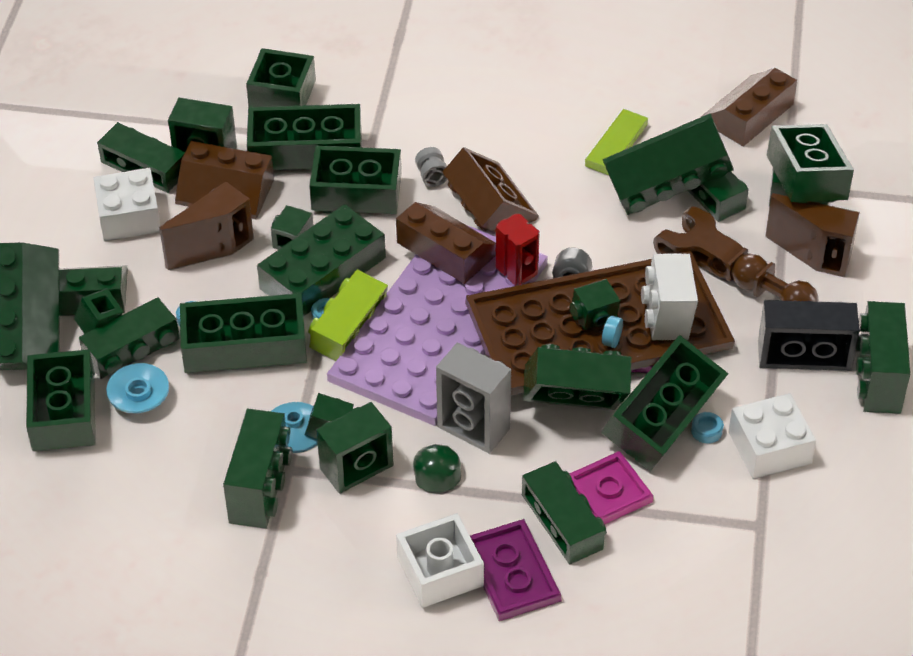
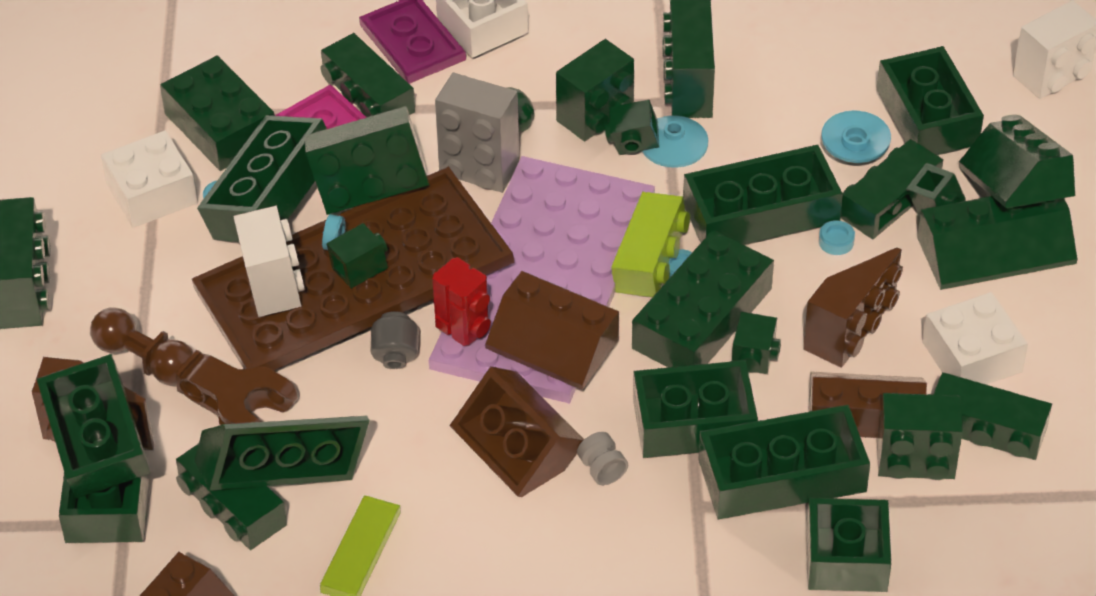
camera: 170 degrees right, 0 degrees up
(707, 494) = (213, 109): none -> dark green brick
(808, 335) = (104, 273): black brick -> none

